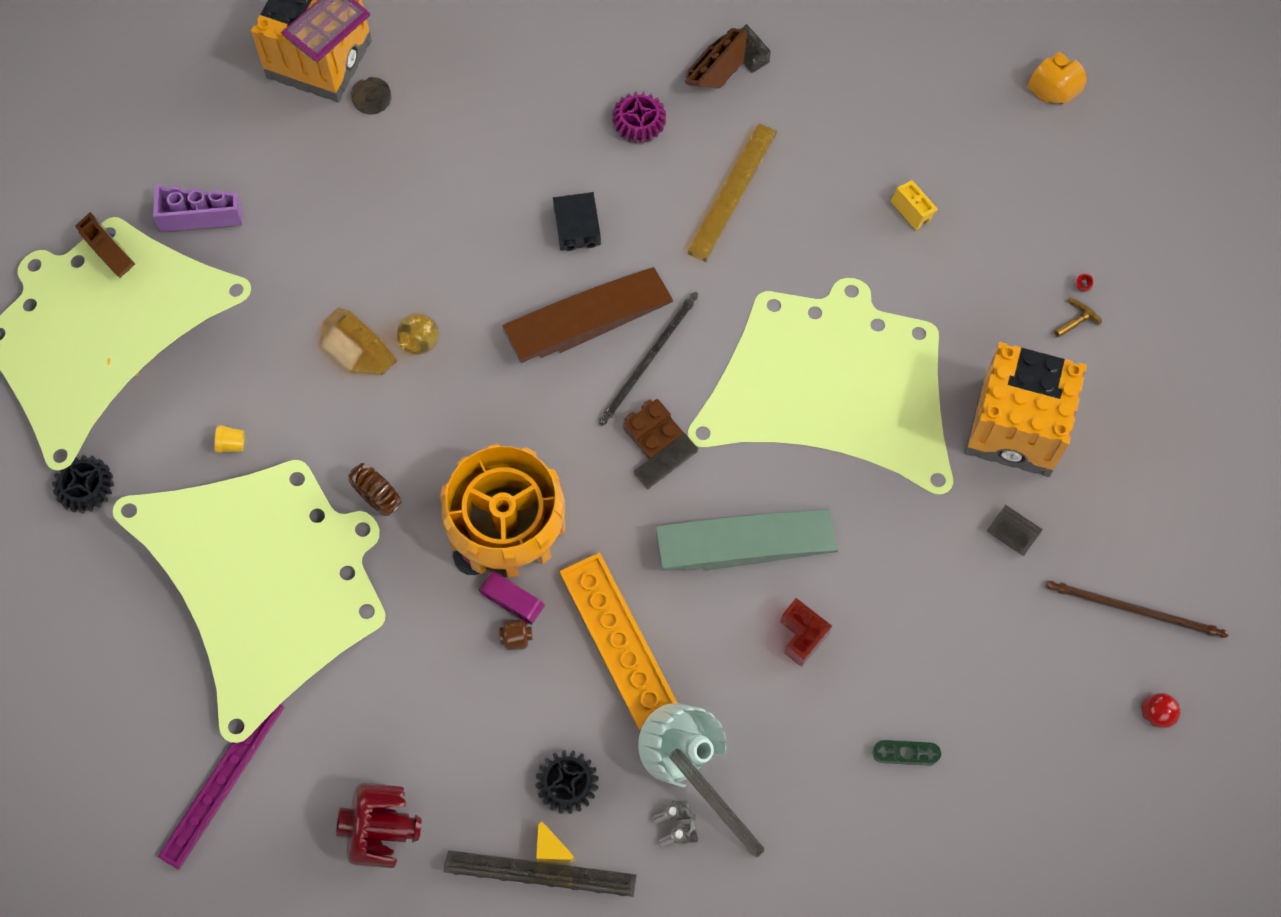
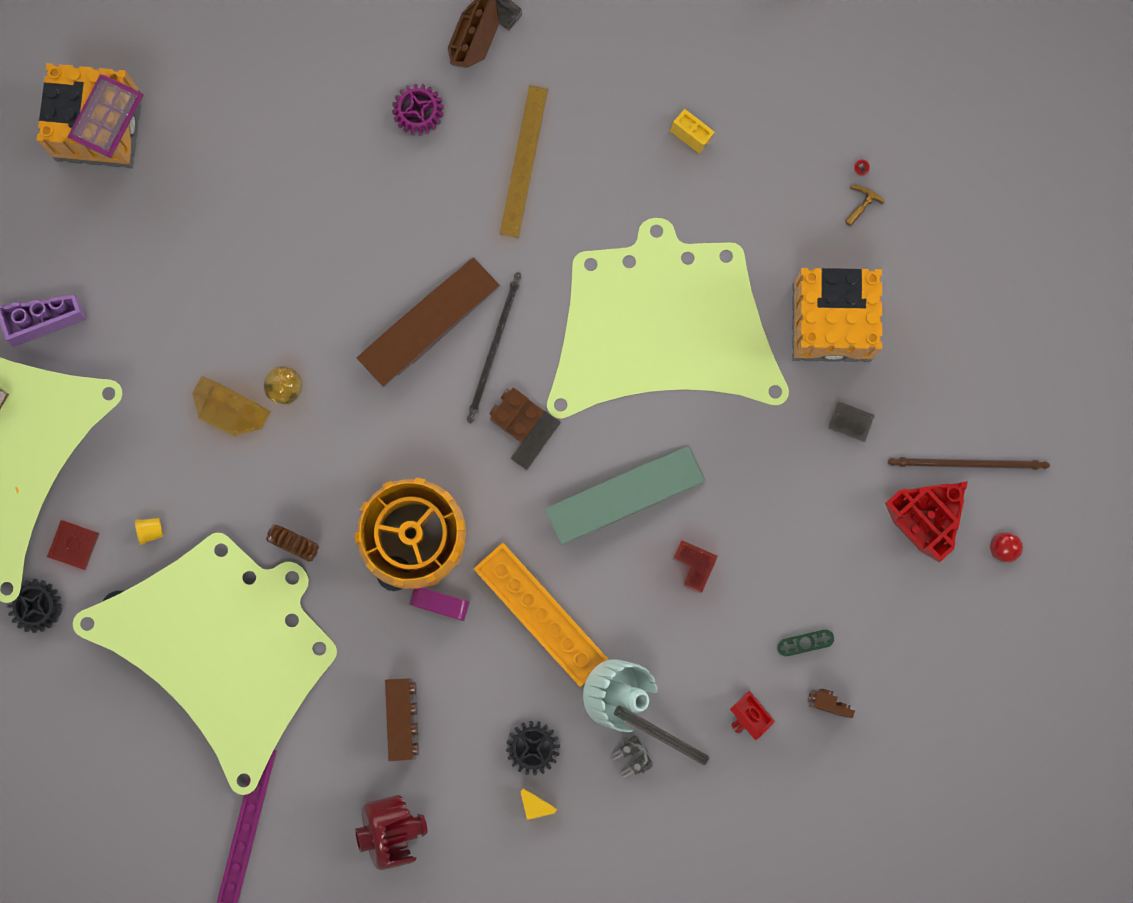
camera: 15 degrees left, 15 degrees up
(146, 435) = (73, 545): none -> clear red tile
(371, 95) = (161, 153): clear smoke tile -> none
(430, 707) = (400, 719): none -> reddish brown brick
(515, 634) = (452, 634): reddish brown head -> none
(540, 873) = (533, 829): clear smoke plate -> none
(577, 221) = (391, 232): black panel -> none
(824, 814) = (751, 716): none -> red tile
(912, 821) = (827, 702): none -> reddish brown plate
(1079, 650) = (929, 516): none -> red wedge

